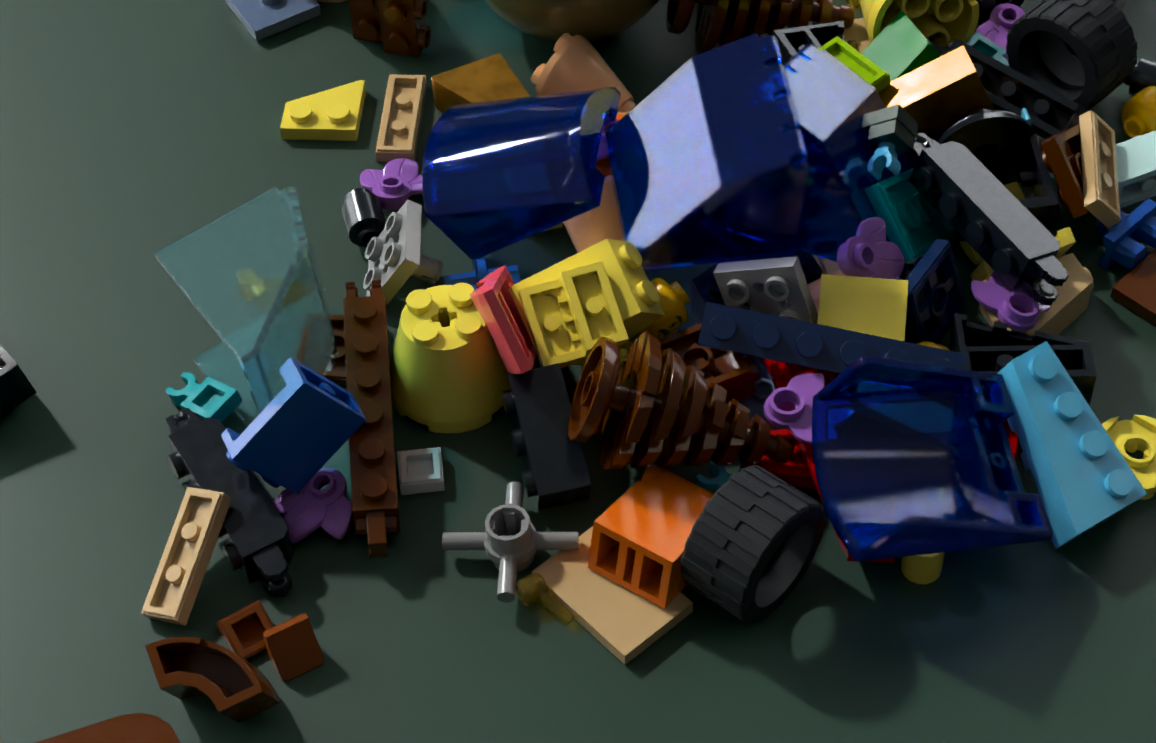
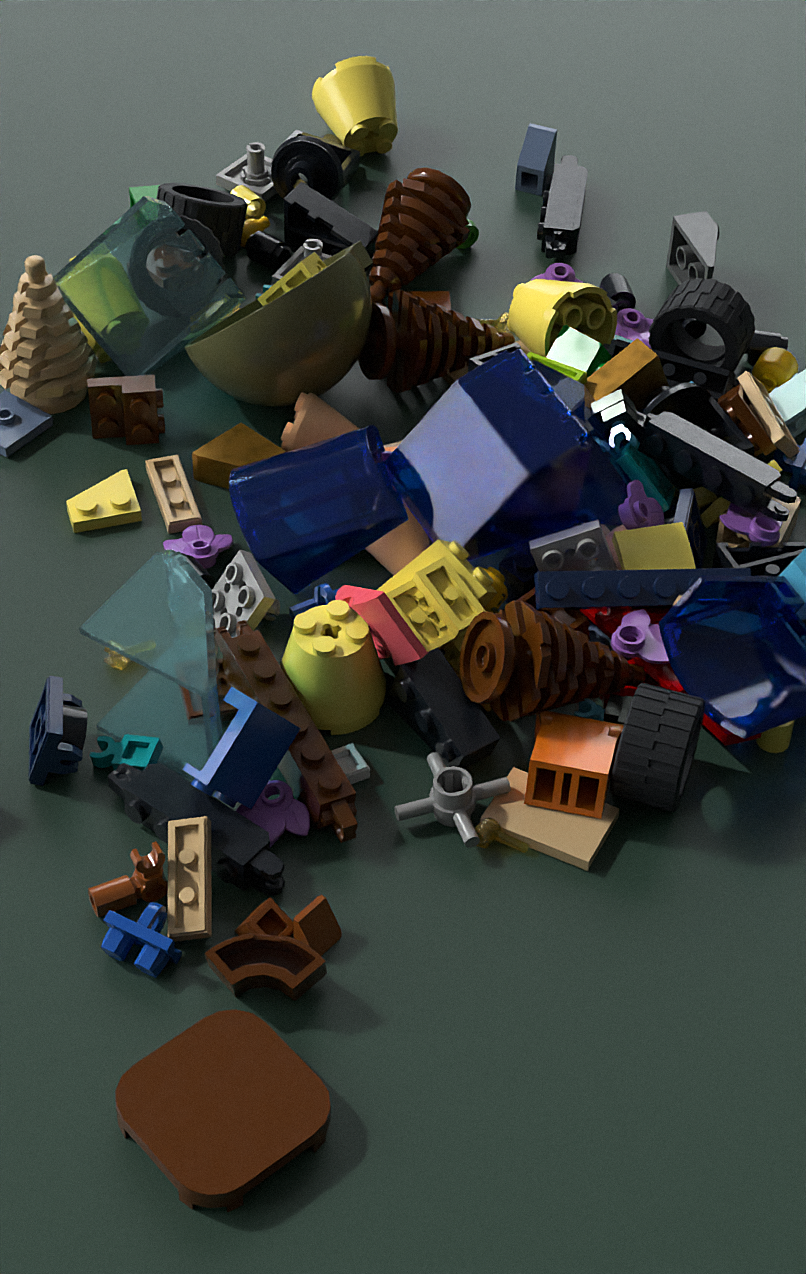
camera: 25 degrees left, 5 degrees down
(116, 604) = (144, 933): none -> blue hips
(123, 549) = (146, 883): none -> dark orange bar
(136, 357) = (56, 733): none -> dark blue piece

